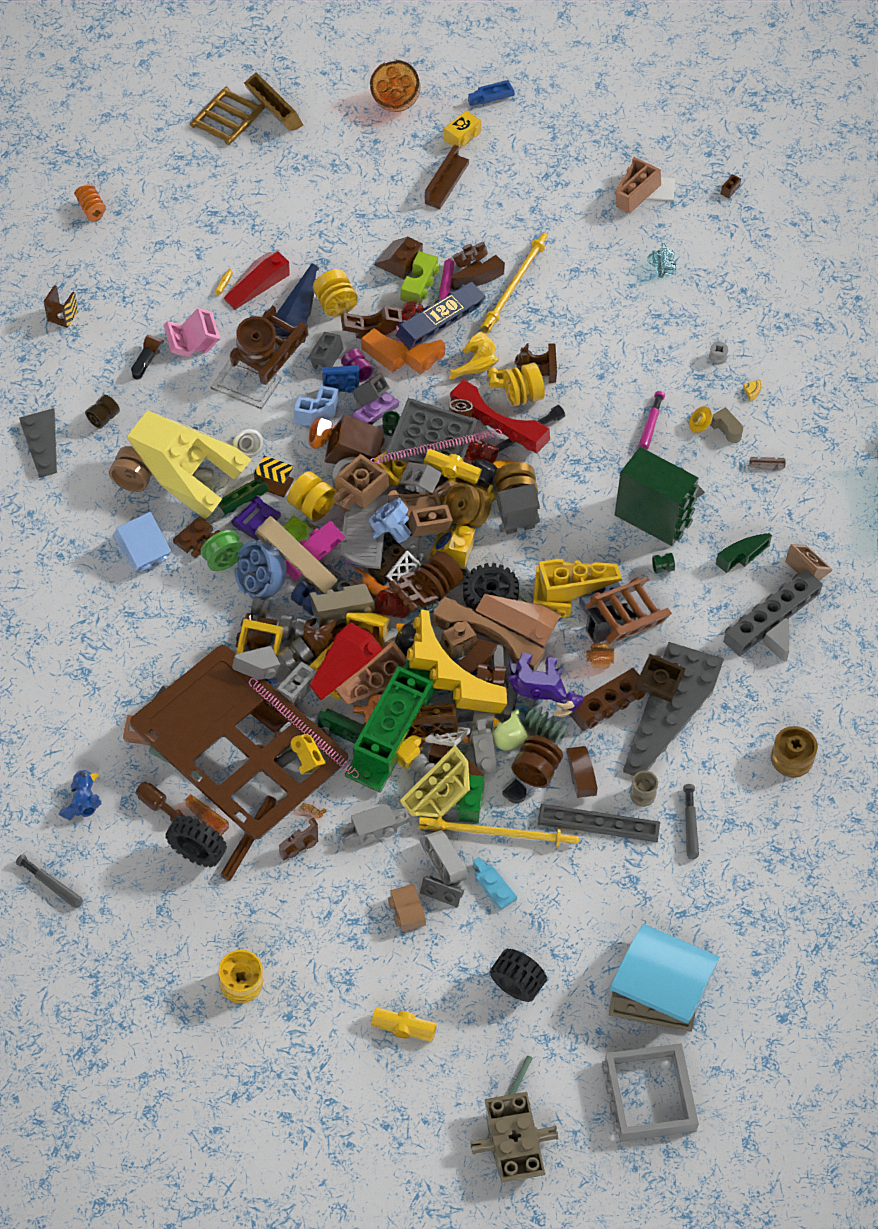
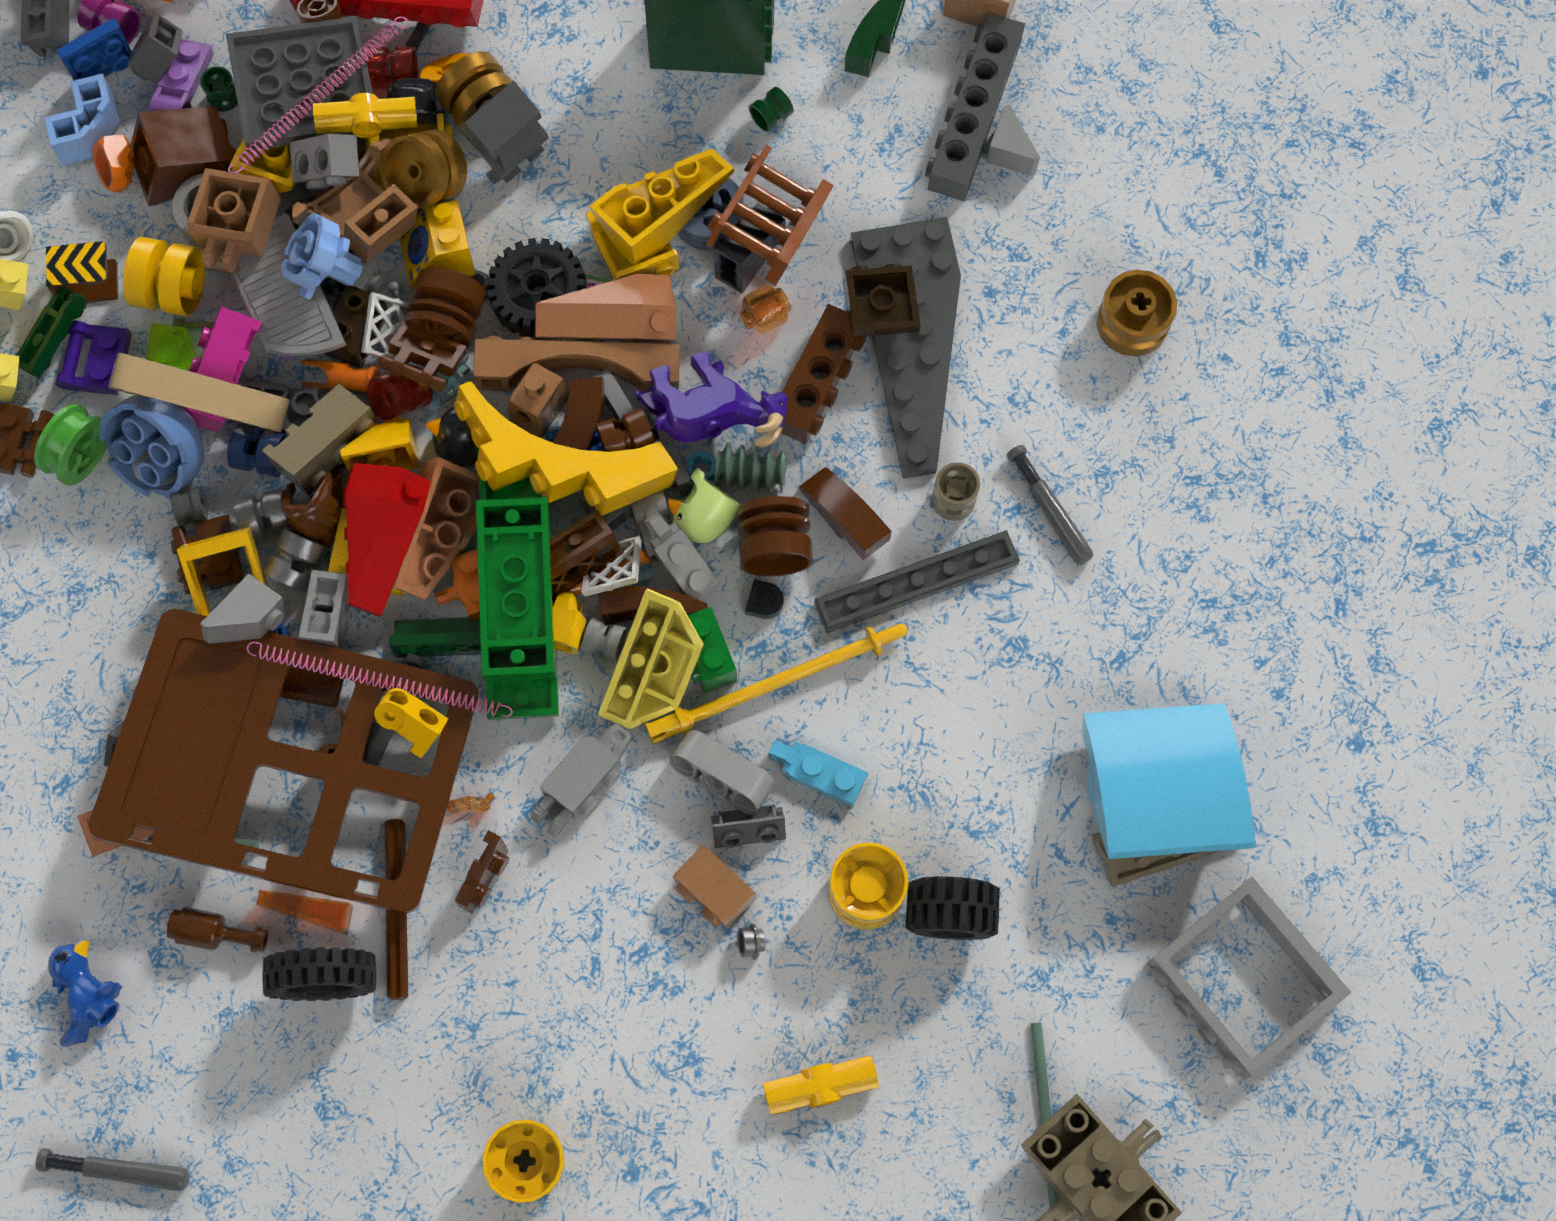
camera: 30 degrees left, 15 degrees up
(410, 942) = (751, 941): none -> flat silver plate
(482, 943) = (867, 886): none -> yellow wheel

